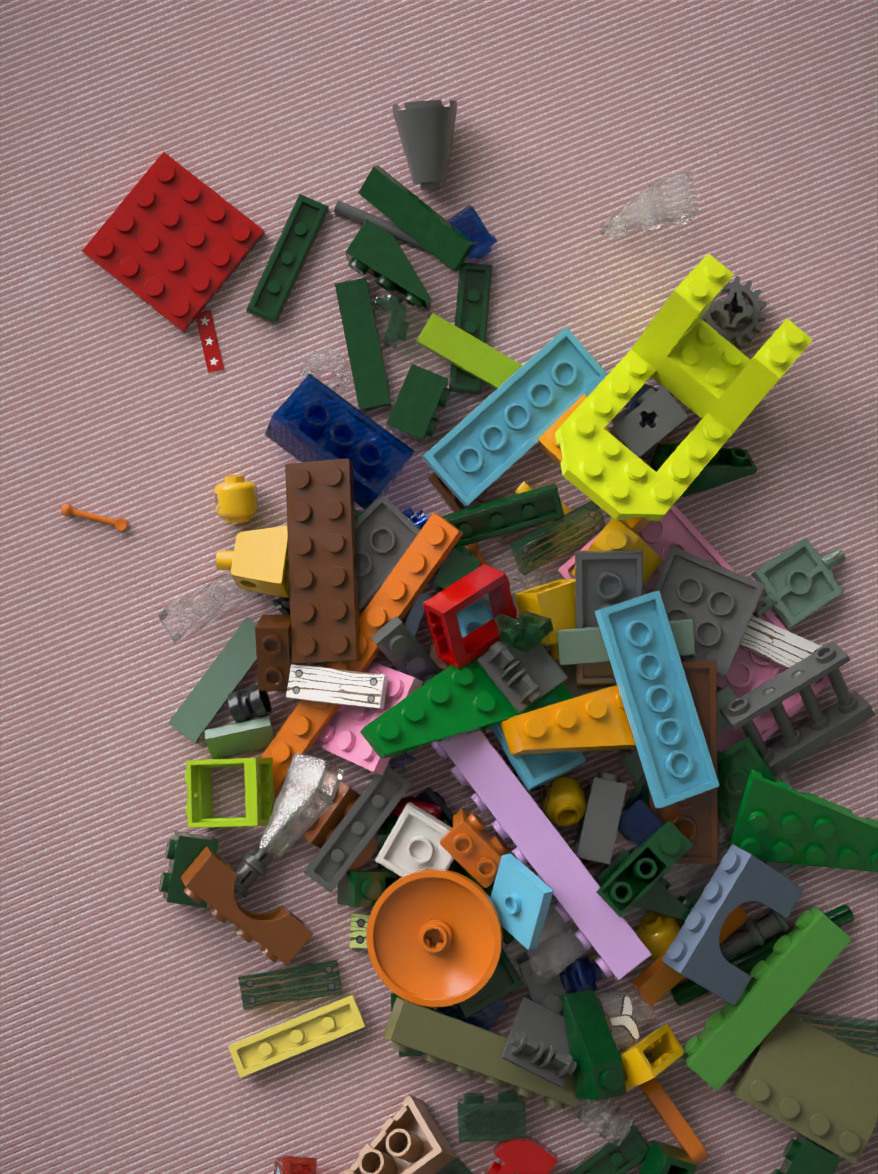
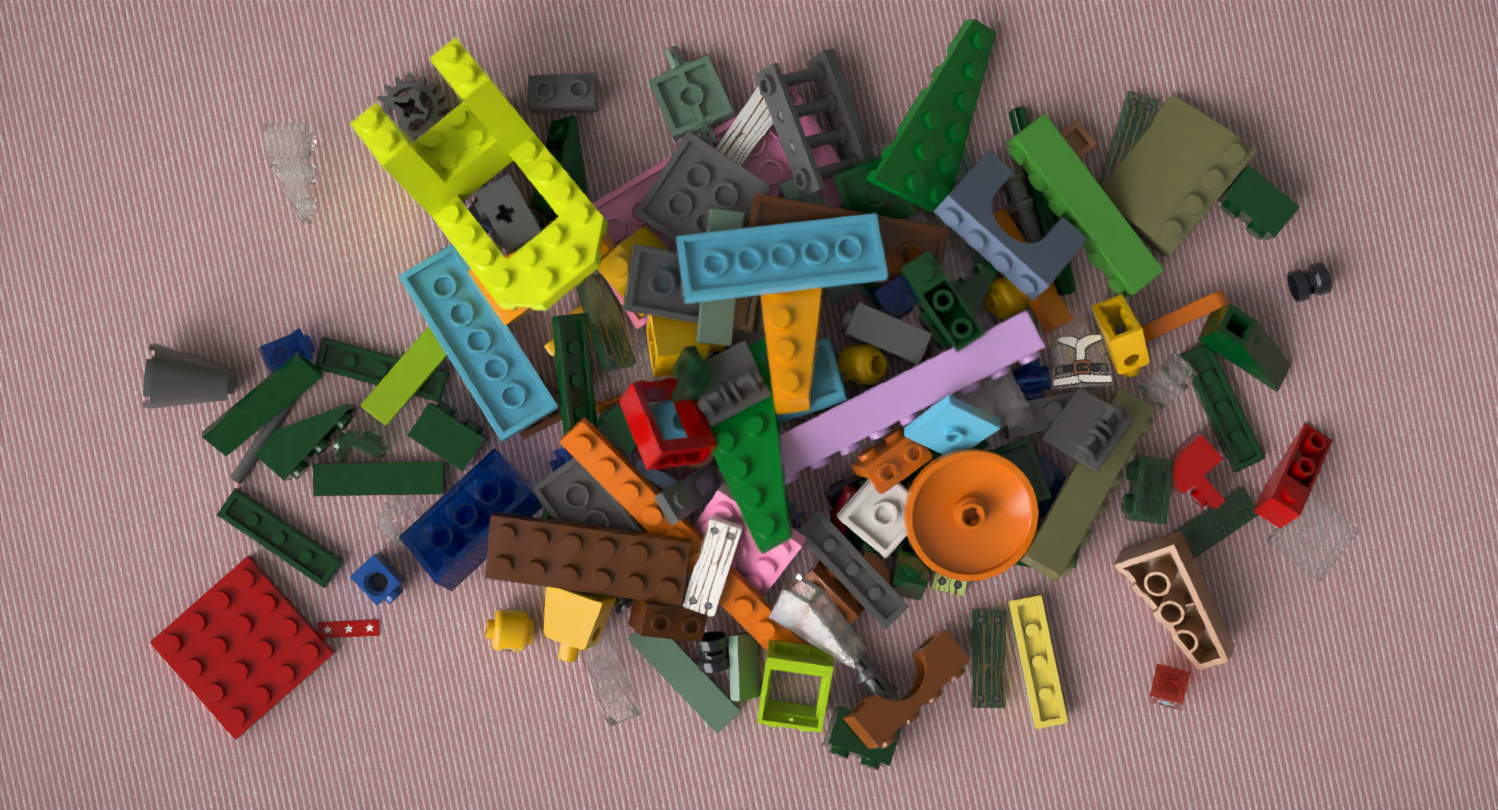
camera: 80 degrees left, 5 degrees up
(120, 524) = (514, 747): orange hinge -> none
(263, 348) = (365, 579): none -> blue brick
(591, 1045) = (1102, 382): dark green slope -> none
(776, 455) = (563, 93): none -> dark grey brick
(831, 980) = (1079, 139): none -> nougat plate

